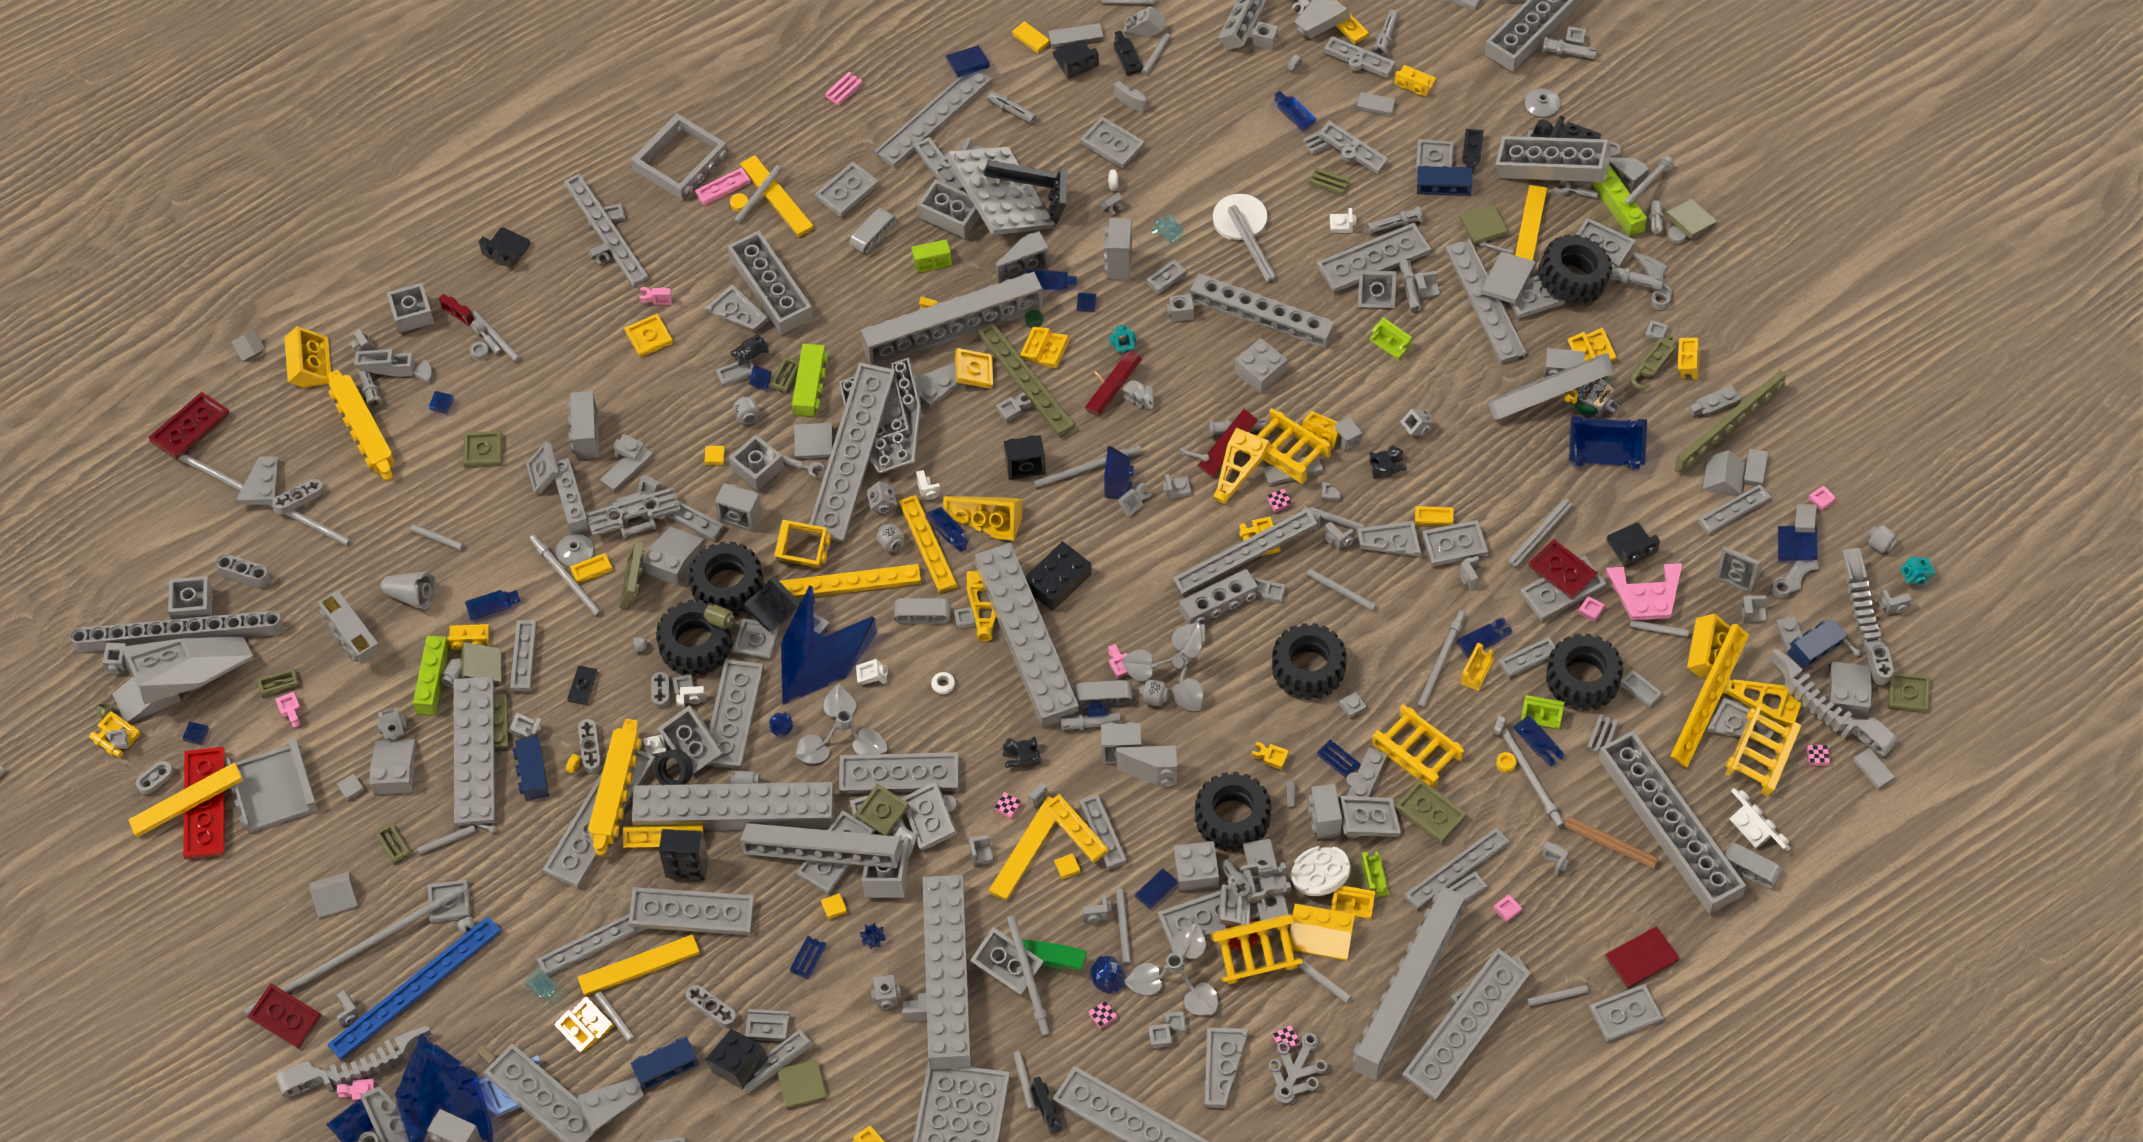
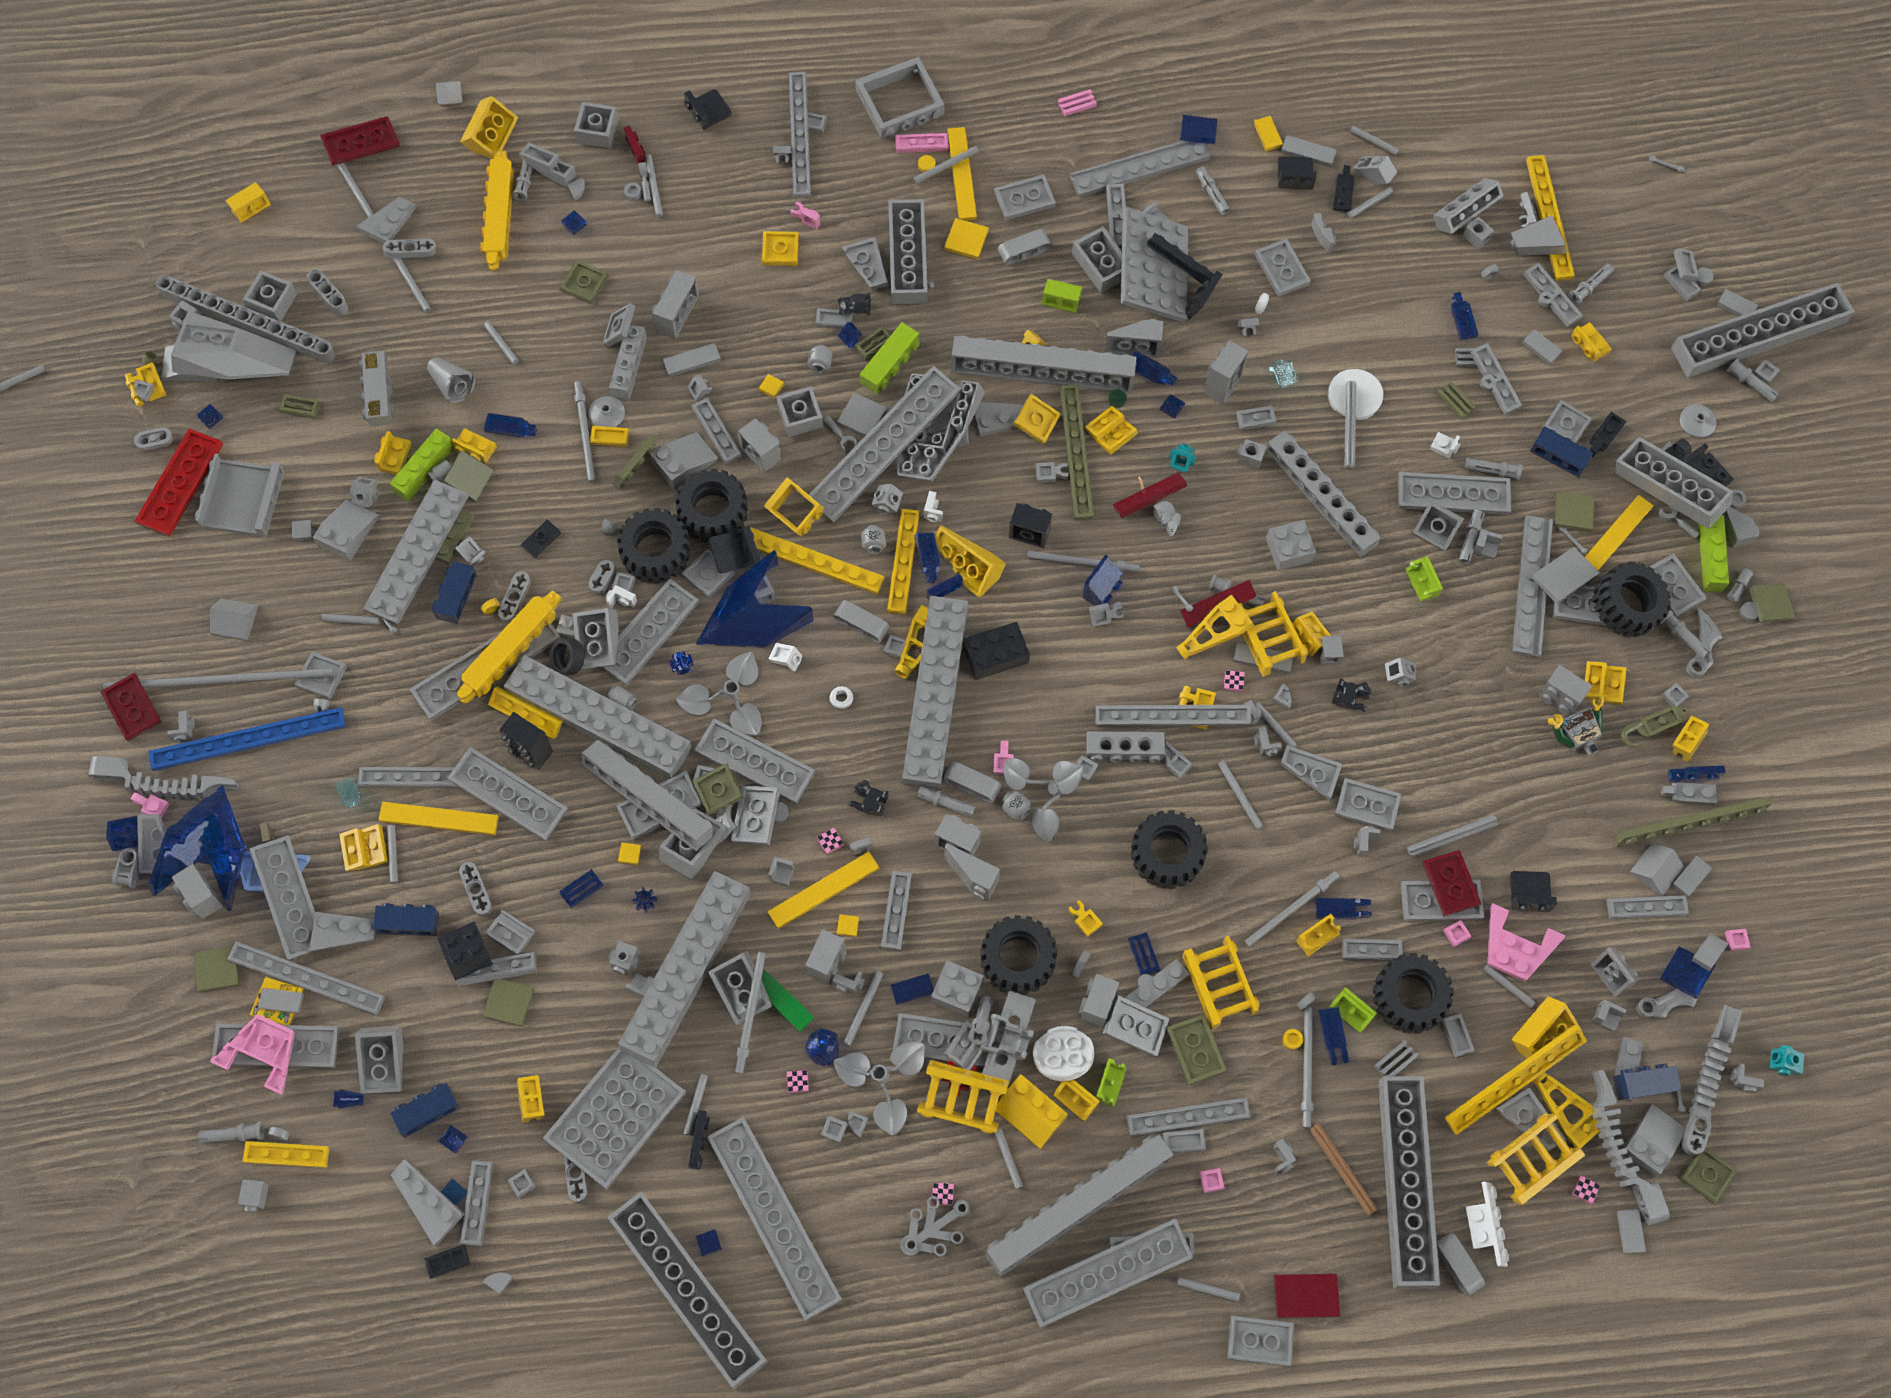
camera: 25 degrees right, 10 degrees up
(113, 529) = (248, 202): none -> yellow hinge
(185, 800) = (163, 472): yellow tile -> none
(289, 707) = (294, 432): bright pink plate -> none
(362, 342) = (542, 136): light grey tile -> none
(396, 680) = (392, 453): none -> yellow bracket
(400, 856) = (299, 614): olive tile -> none
(523, 656) = (507, 487): light grey plate -> none
(627, 447) = (701, 342): light grey bracket -> none
(632, 507) = (674, 399): light grey piece -> none
(719, 616) = (678, 539): olive brick -> none
(815, 248) = (966, 238): none -> yellow tile
(979, 546) = (946, 587): none -> clear blue tile
(1067, 897) = (825, 957): none -> light grey brick
(1076, 828) = (874, 896): yellow tile -> none
(1096, 709) = (956, 794): clear blue plate -> none
(1176, 487) = (1150, 621): light grey bracket -> none
(1222, 1061) = (875, 1182): light grey wing -> none
(1352, 705) = (1186, 910): light grey plate -> none
(1434, 516) = (1365, 768): yellow tile -> none
(1551, 386) = (1542, 702): light grey beam -> none
(1607, 442) = (1565, 781): clear blue windscreen -> none
(1664, 164) = (1777, 538): light grey piece -> none
(1710, 383) = (1695, 773): none -> clear blue hinge
(1881, 538) = (1771, 1010): light grey head -> none

